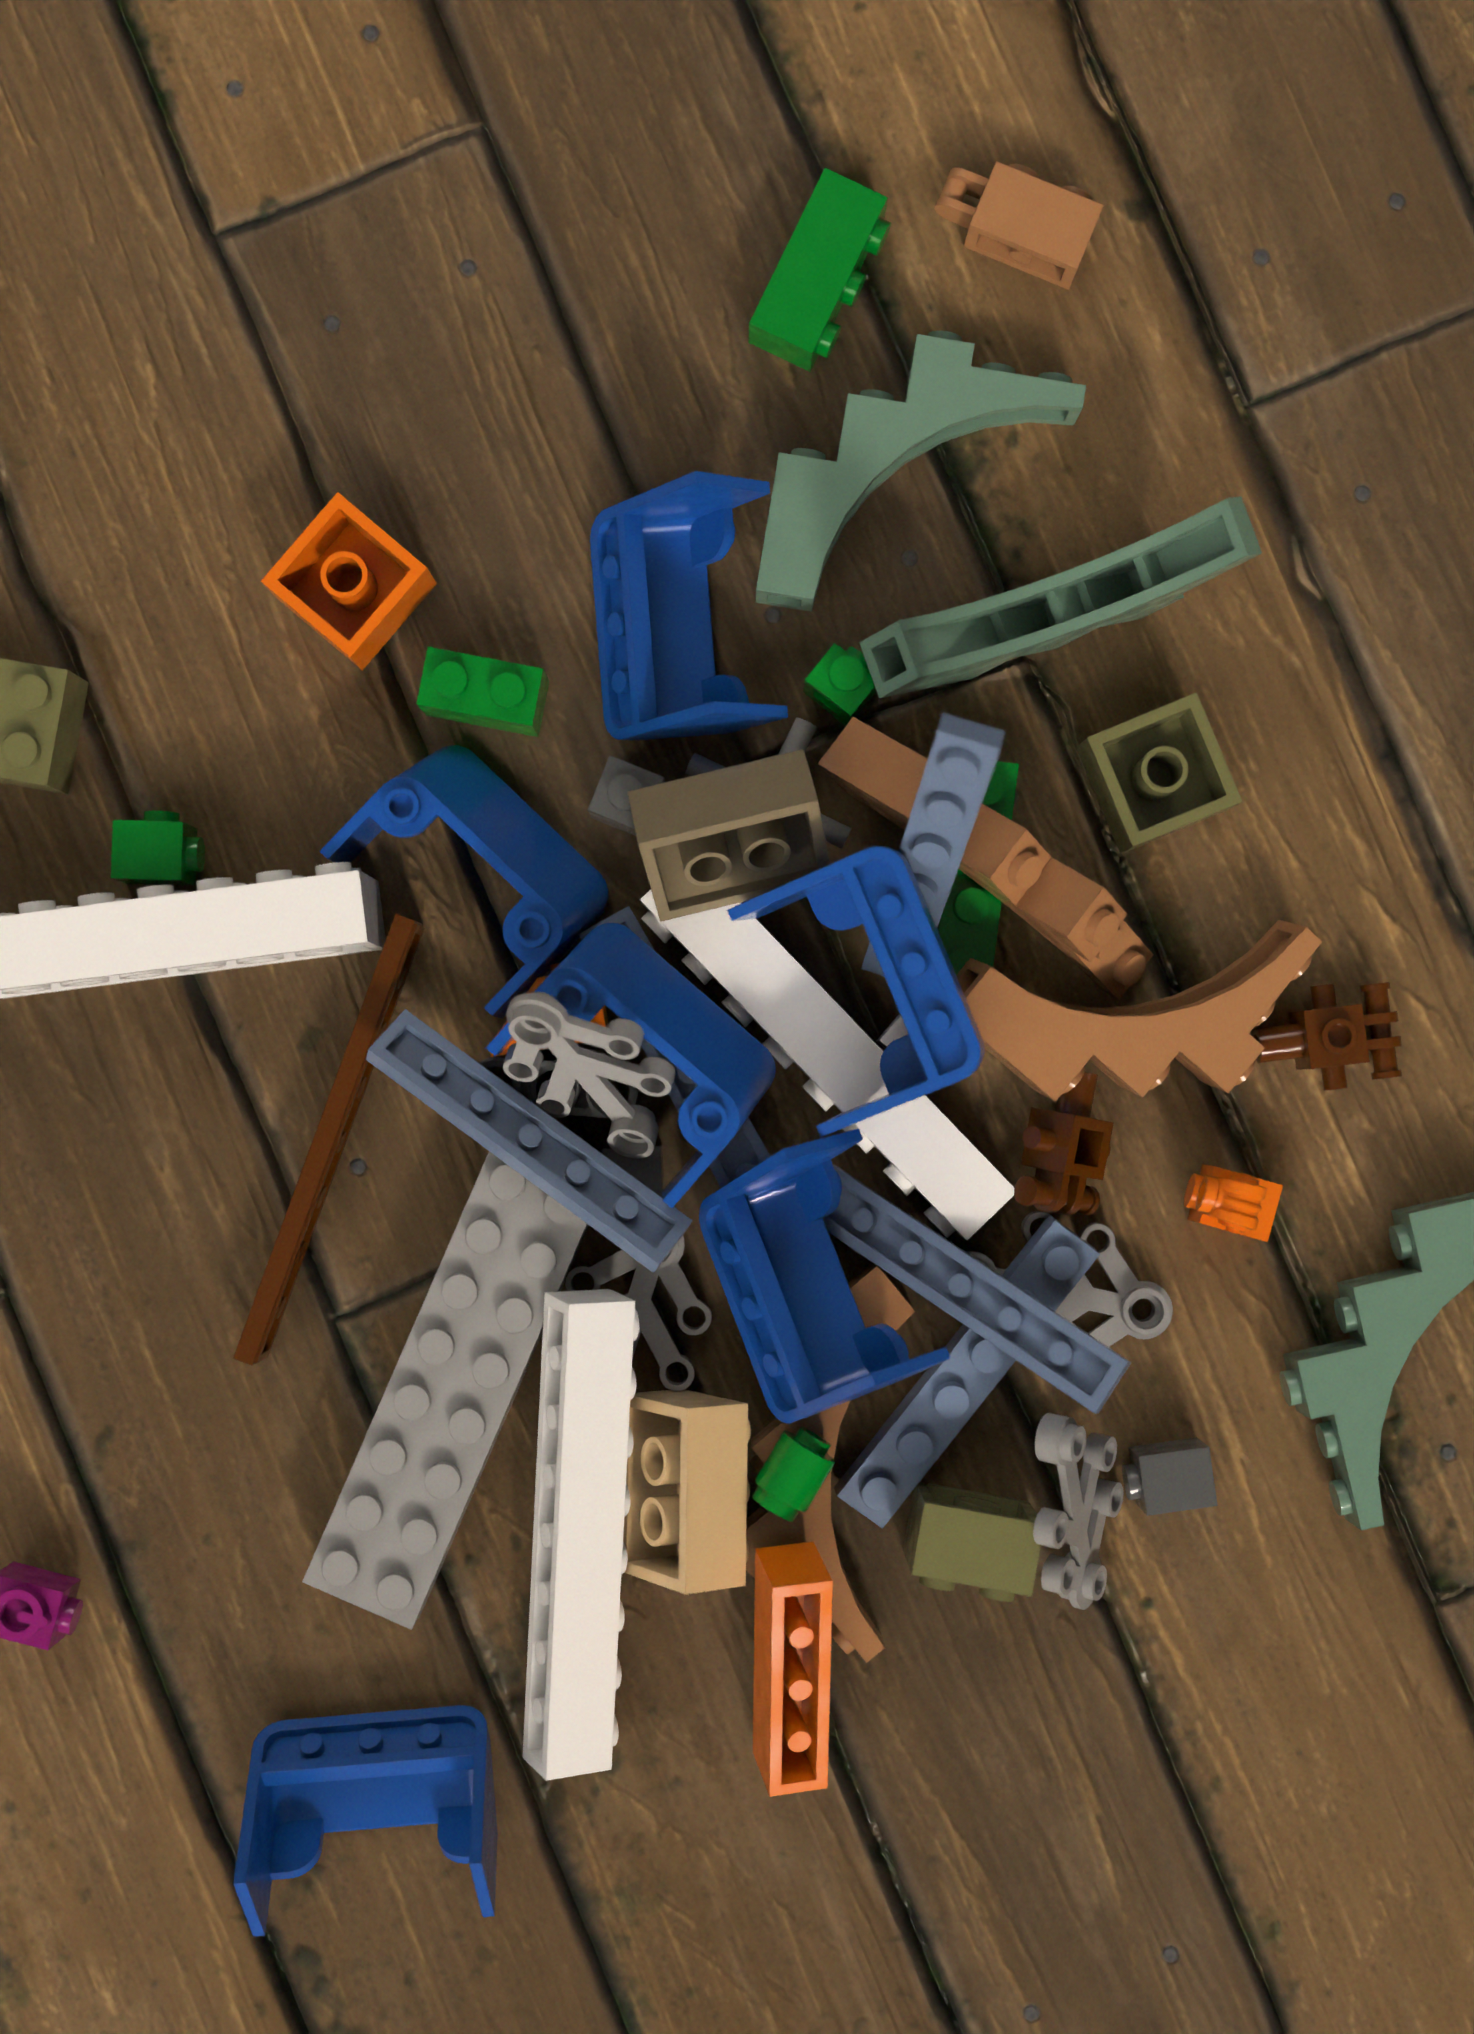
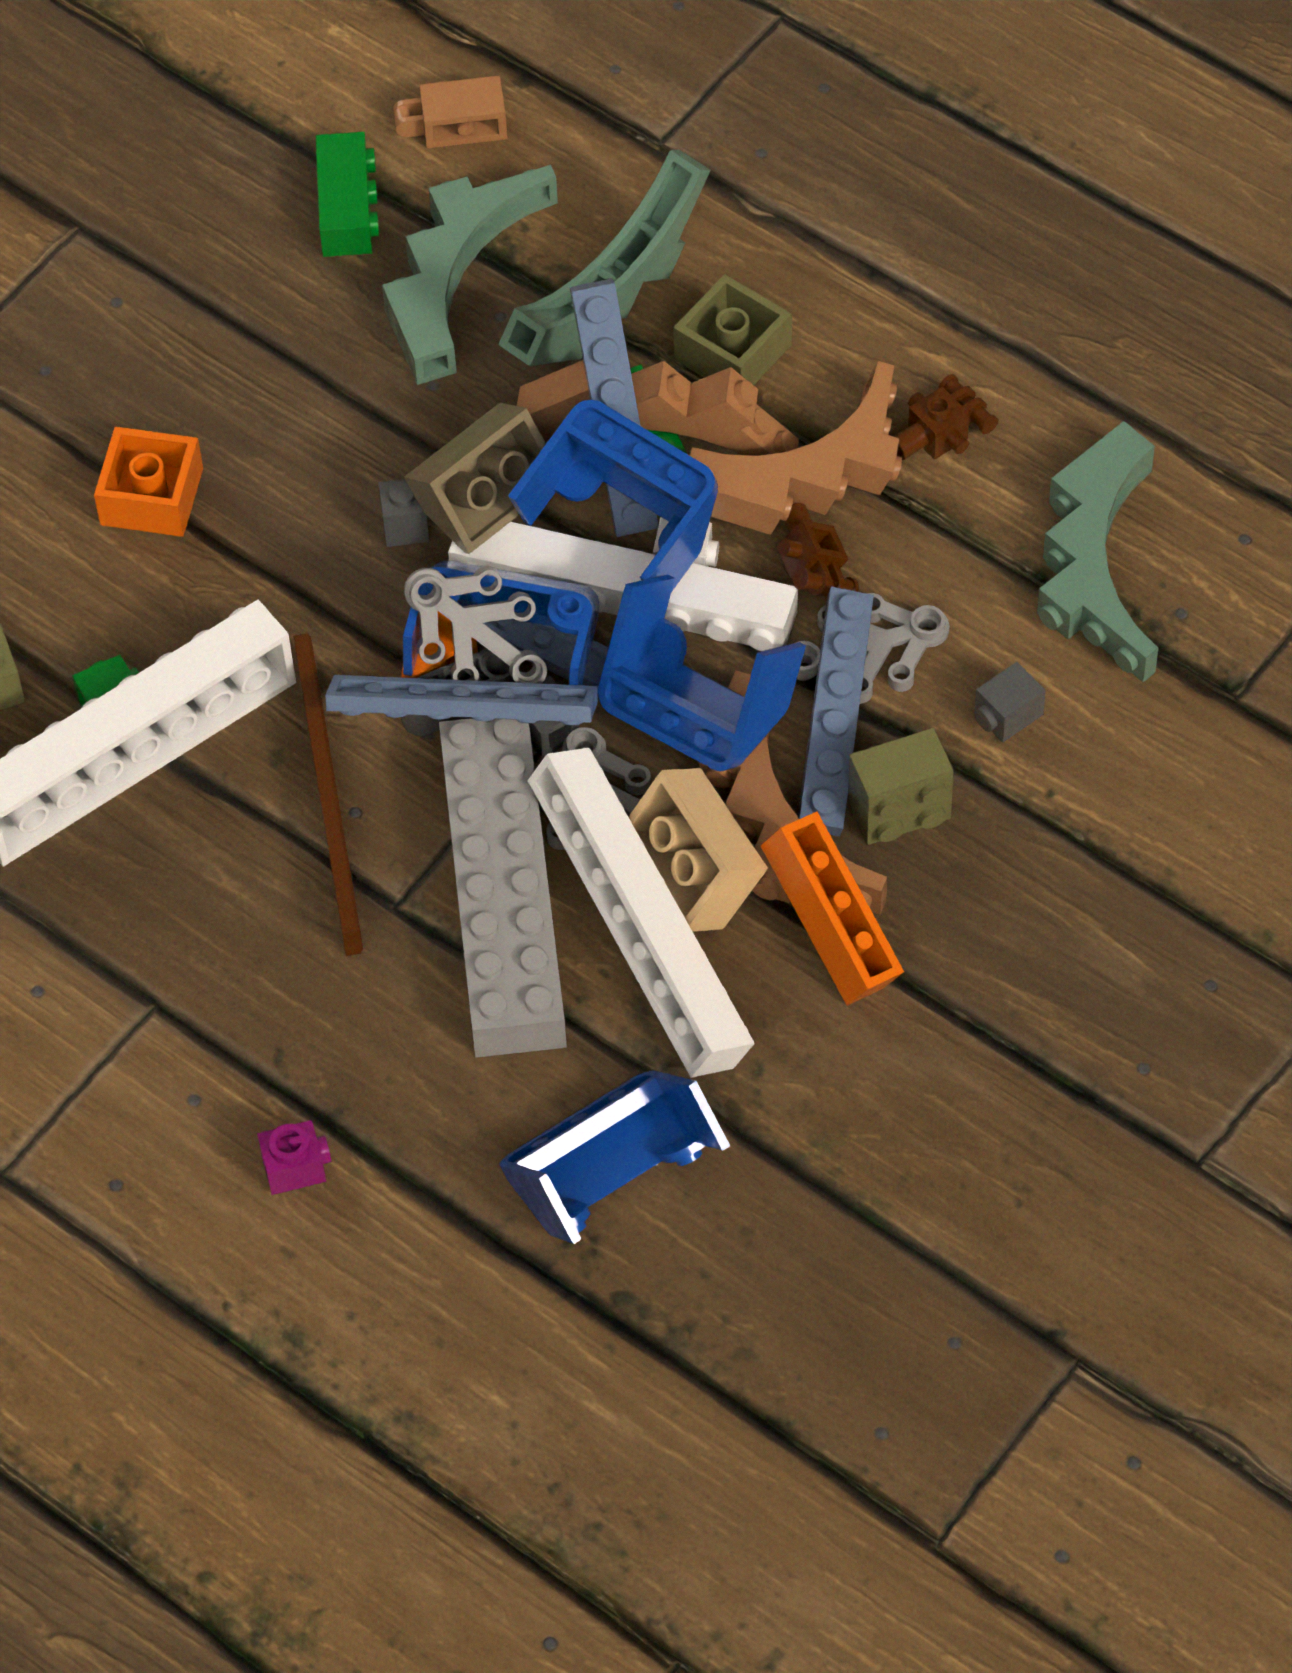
camera: 30 degrees left, 30 degrees down
(483, 691) = (273, 501): green brick -> none
(556, 882) = (330, 574): blue windscreen -> none
(657, 612) = (349, 409): blue windscreen -> none
(793, 1473) = (757, 795): green brick -> none
(841, 683) = (499, 376): green brick -> none
(976, 1295) = (826, 641): sand blue plate -> none
(1085, 1503) = (945, 723): light grey plant -> none
(1232, 1201) = (939, 531): orange brick -> none

